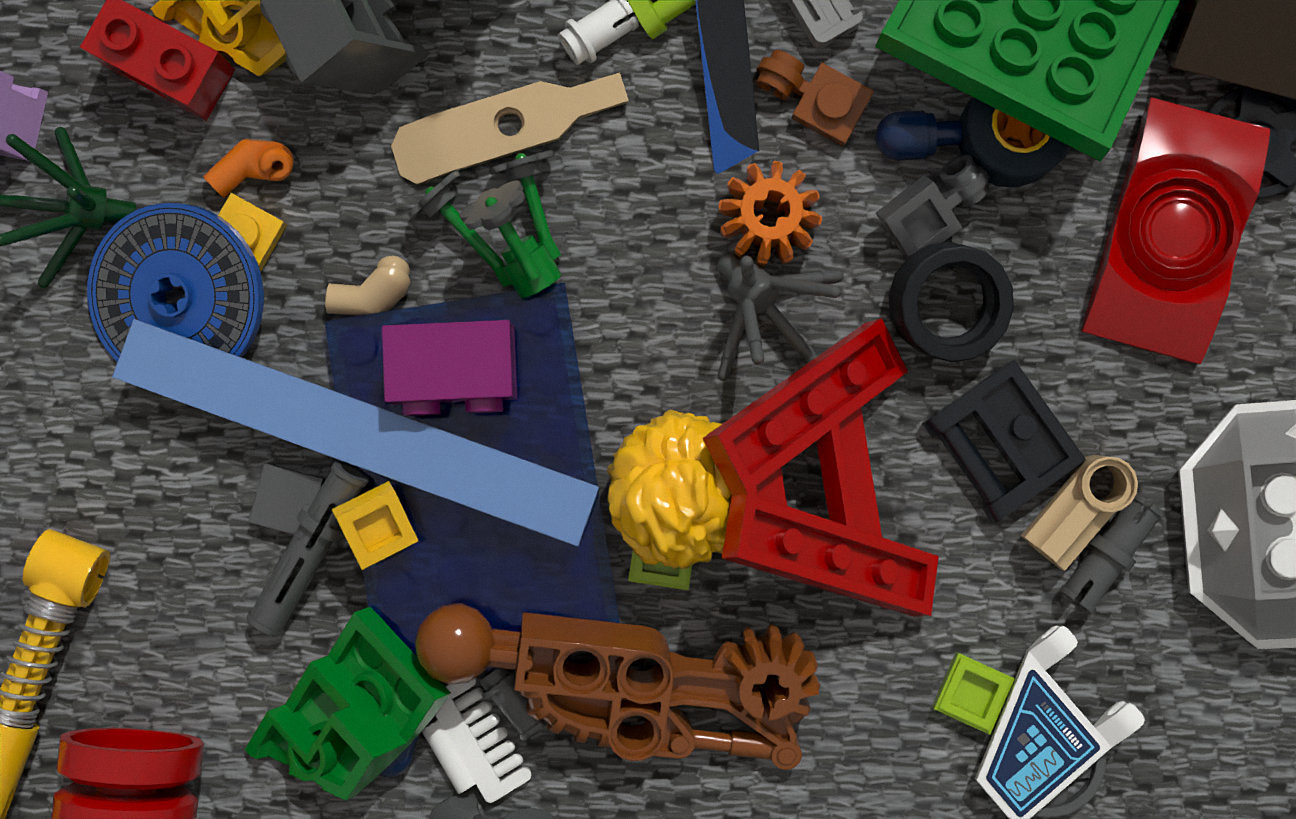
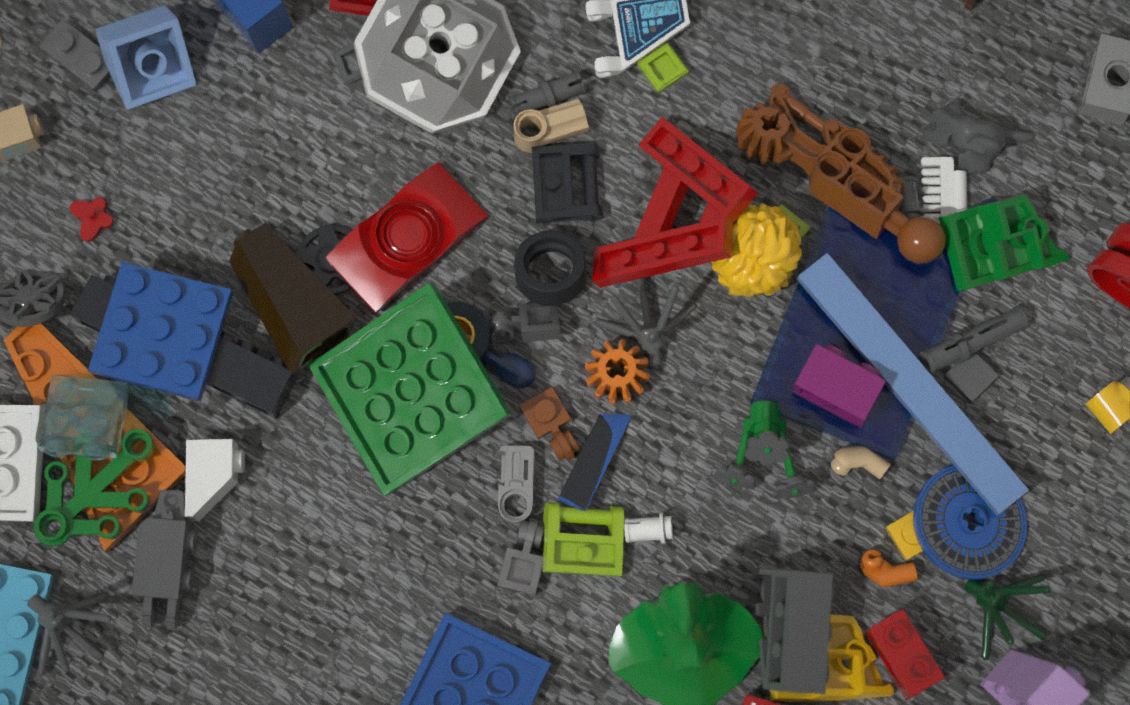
camera: 140 degrees left, 10 degrees down
(375, 525) = (929, 325): yellow plate -> none
(471, 133) = (753, 512): tan piece -> none

